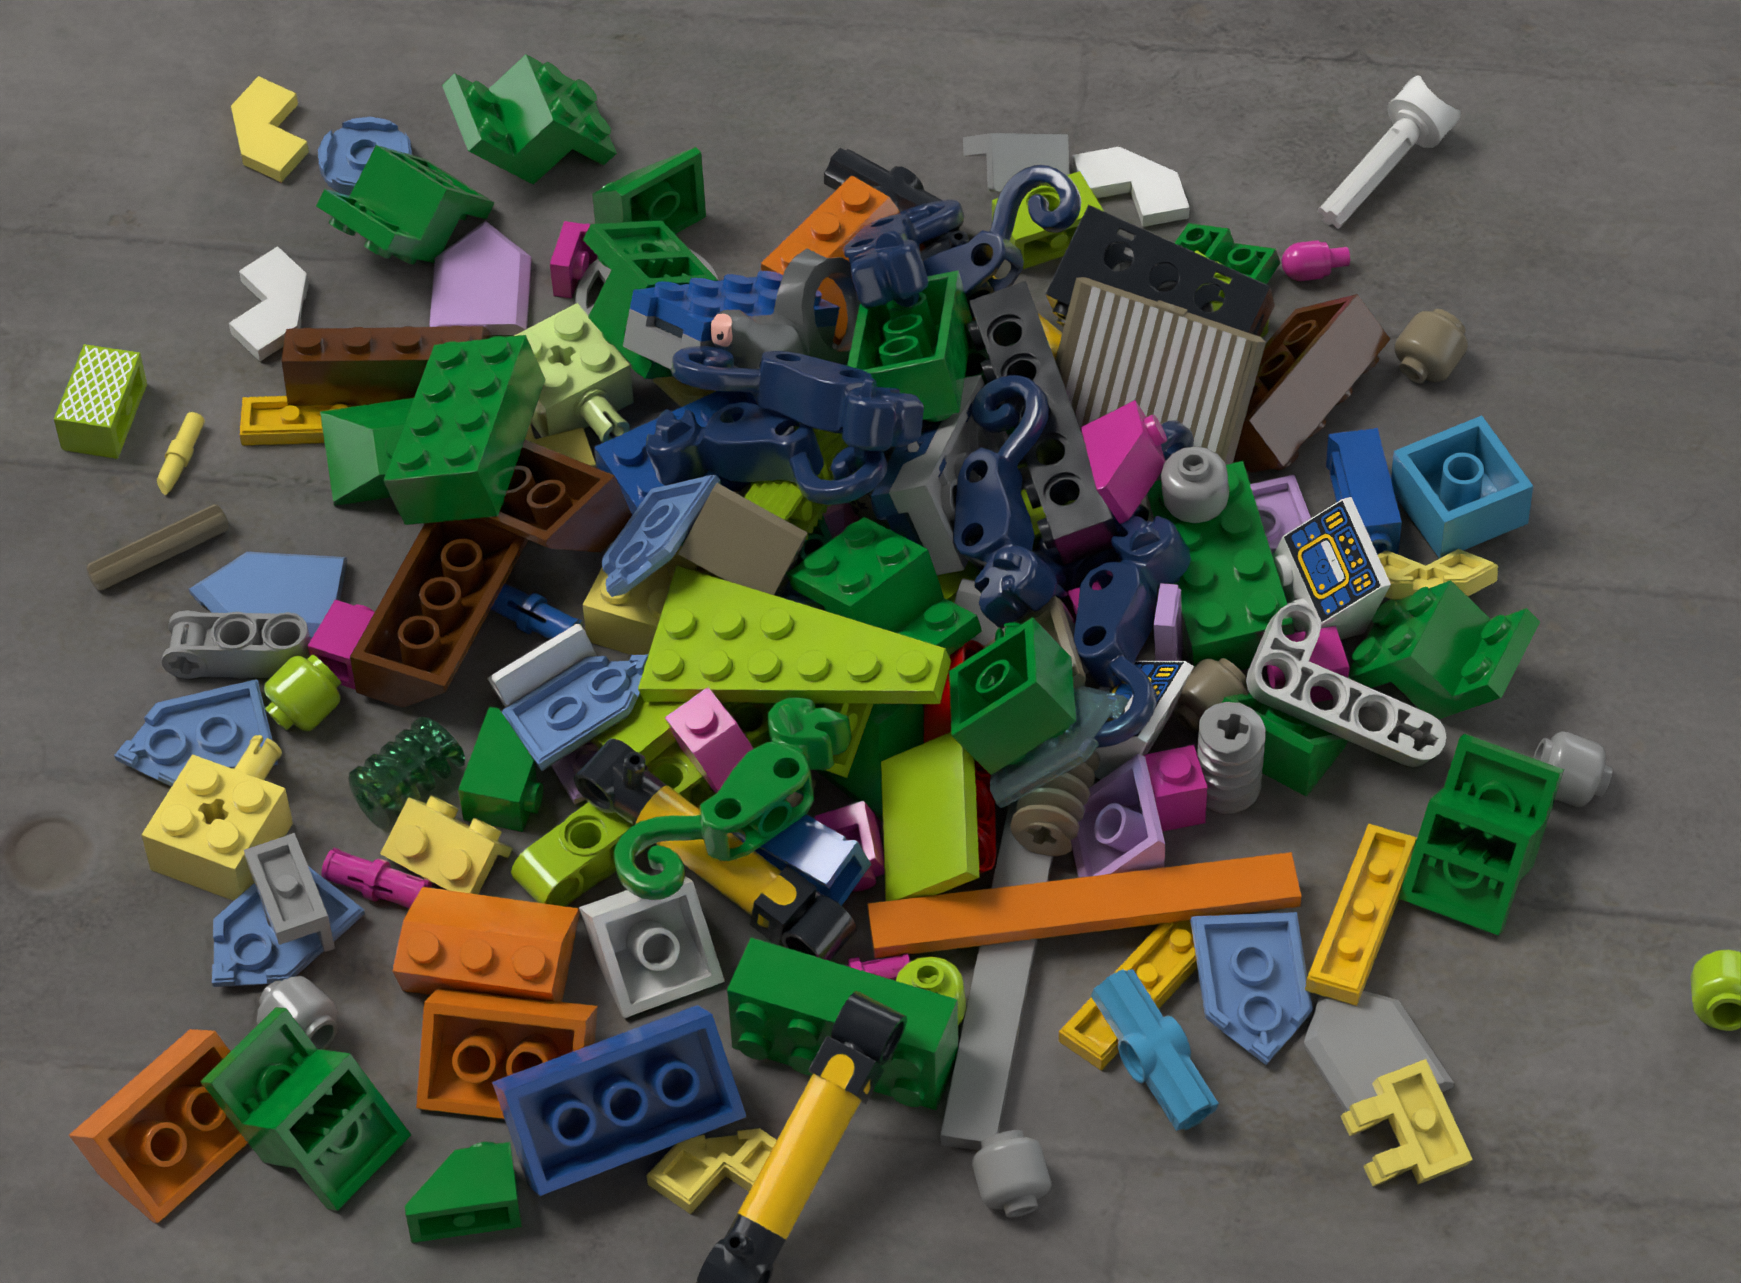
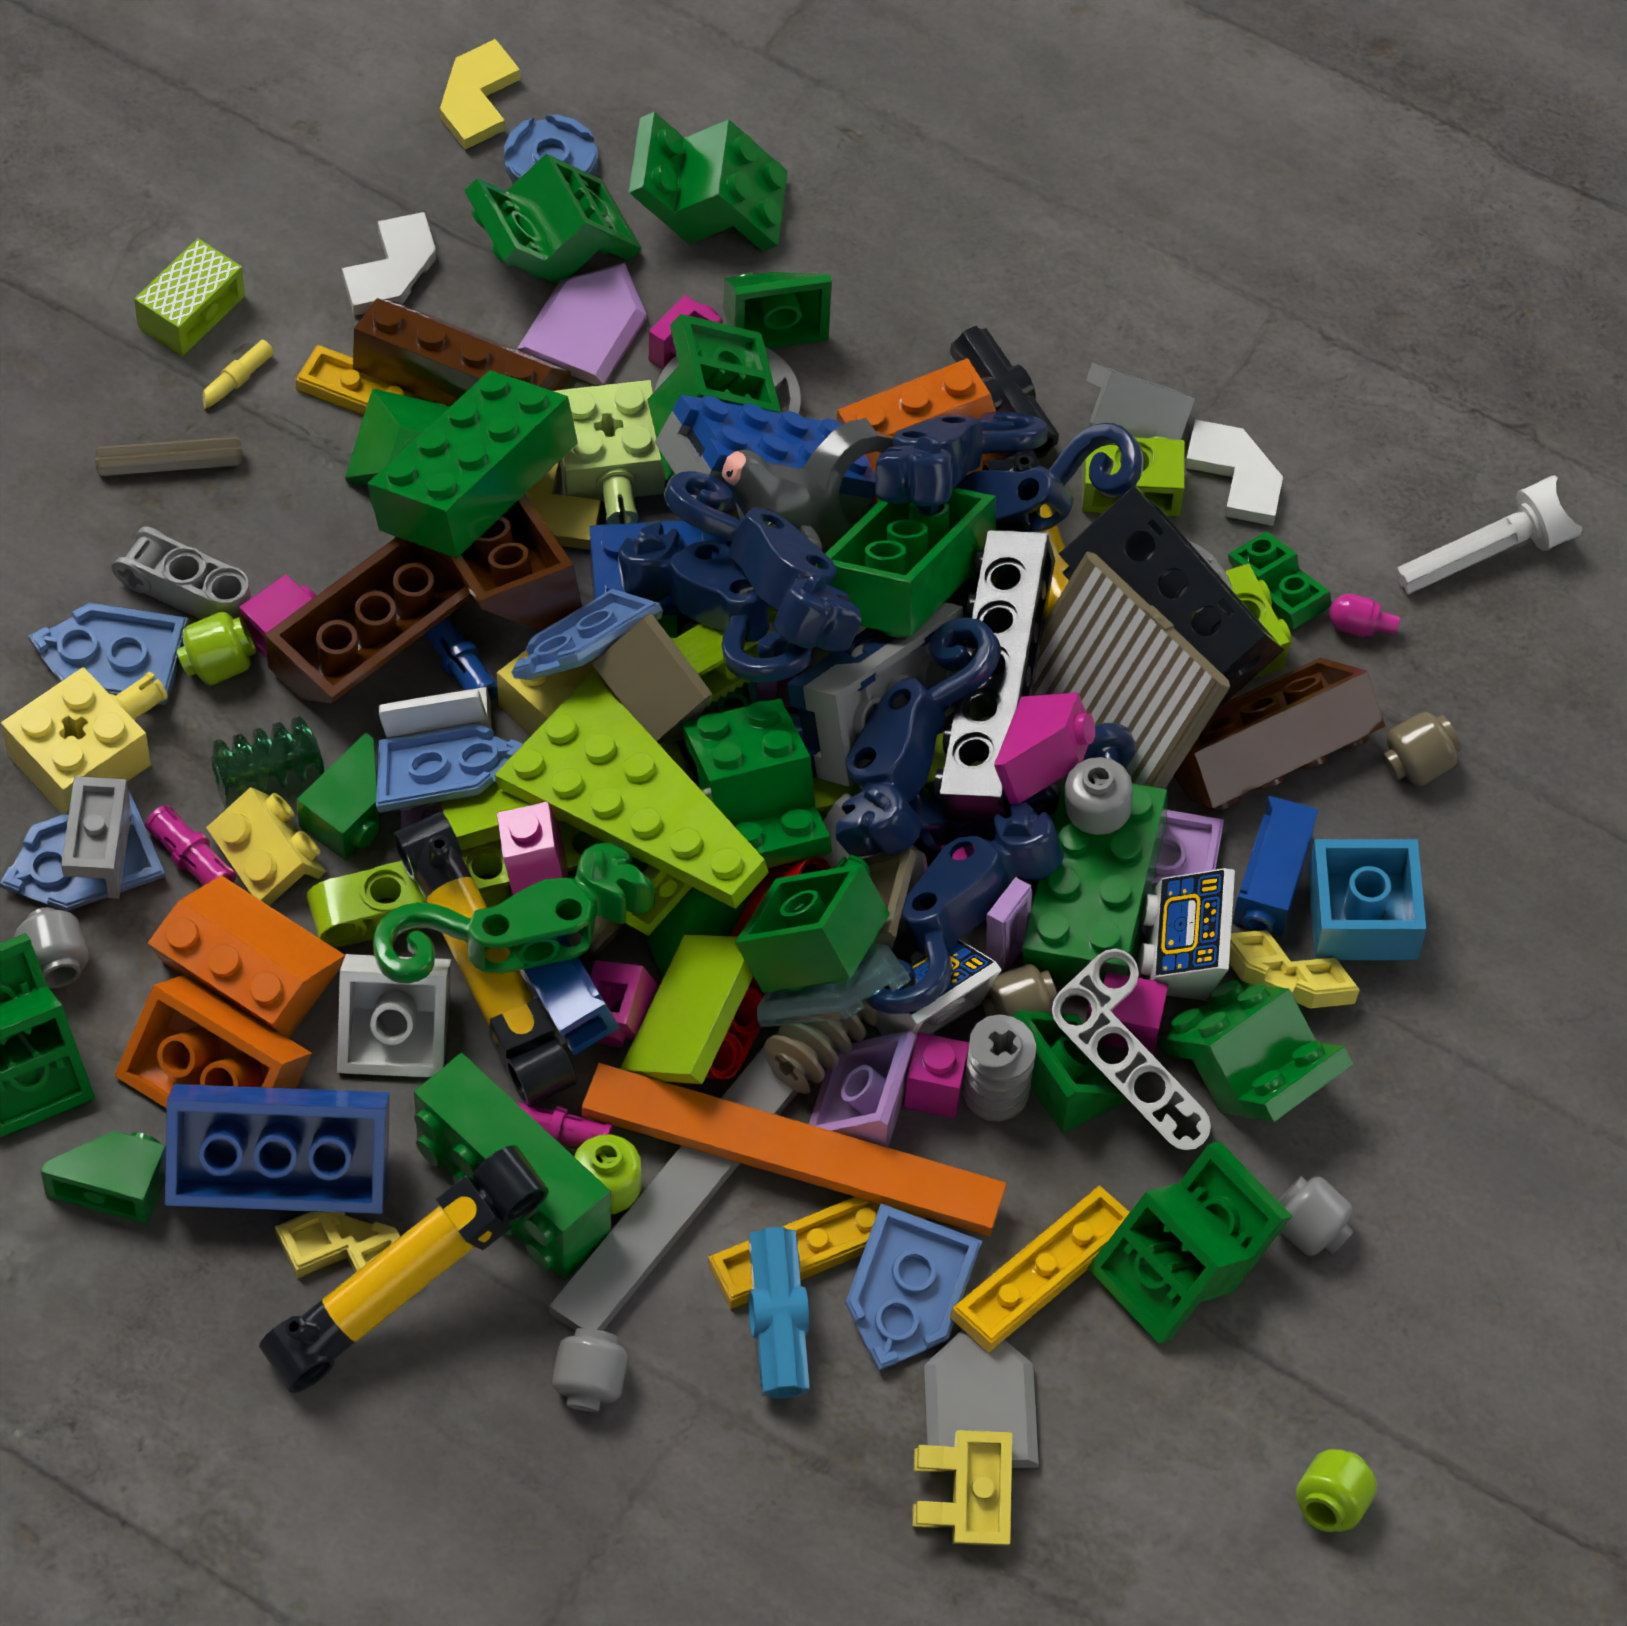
camera: 20 degrees right, 5 degrees up
(275, 585) = (250, 538): medium blue tile -> none

